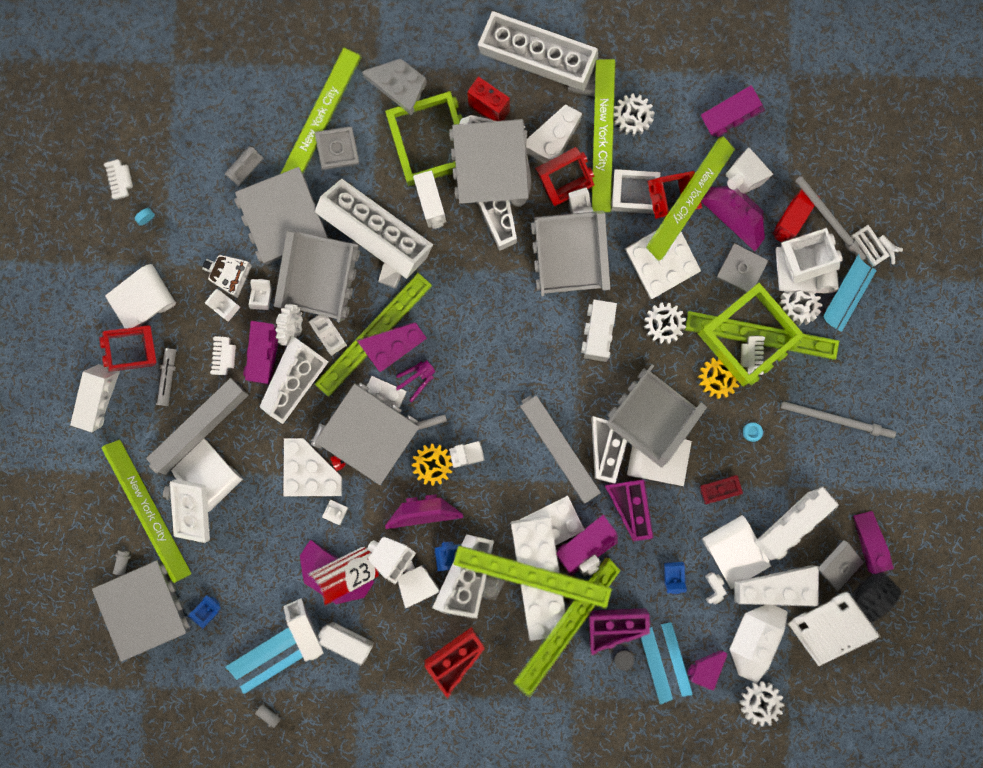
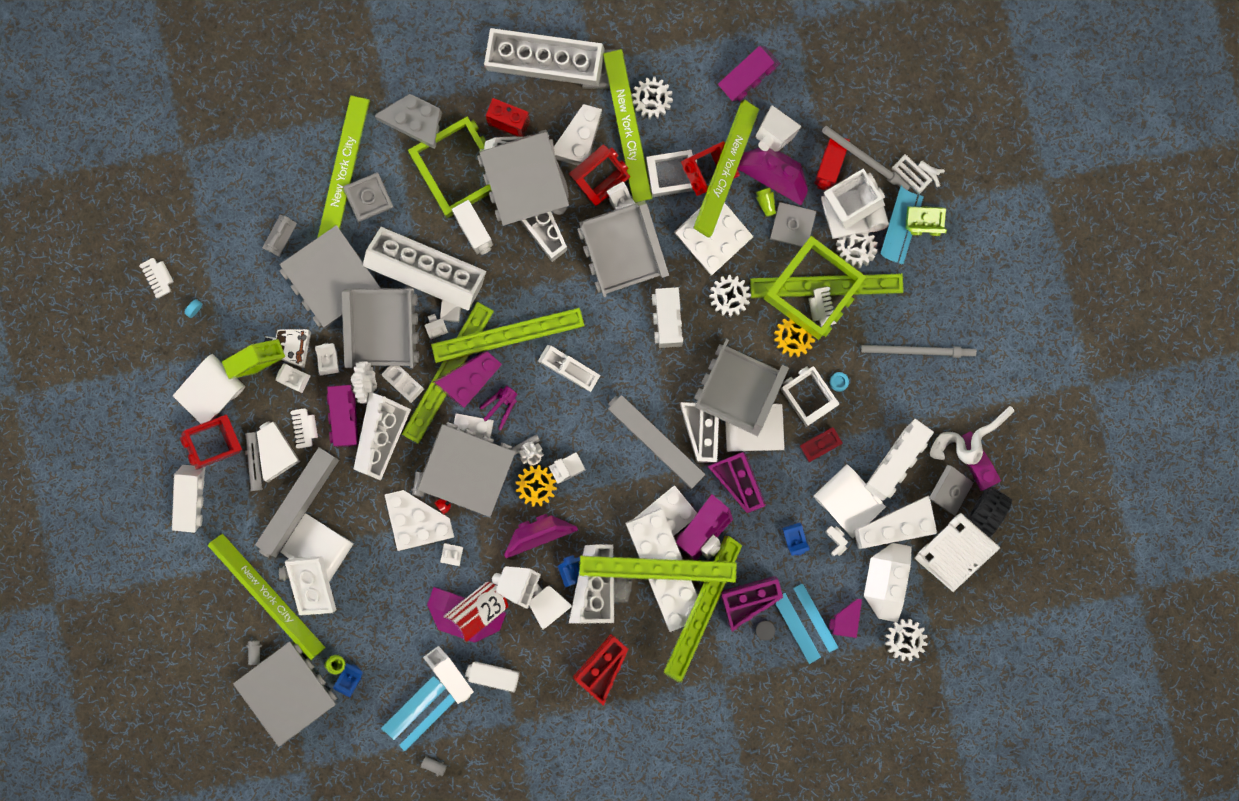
camera: 25 degrees left, 0 degrees up
(186, 277) = (253, 359): none -> lime window
(188, 372) = (274, 451): none -> white slope
(197, 597) = (339, 664): none -> lime cone
(371, 288) = (435, 327): none -> white tile
(435, 432) = (531, 453): none -> white gear
(439, 311) = (507, 335): none -> lime tile
(491, 357) = (568, 368): none -> white slope
(721, 239) = (766, 201): none -> lime cone
(742, 449) = (805, 372): none -> white window
(874, 293) = (926, 219): none -> bracket
(874, 535) = (967, 456): none -> white animal

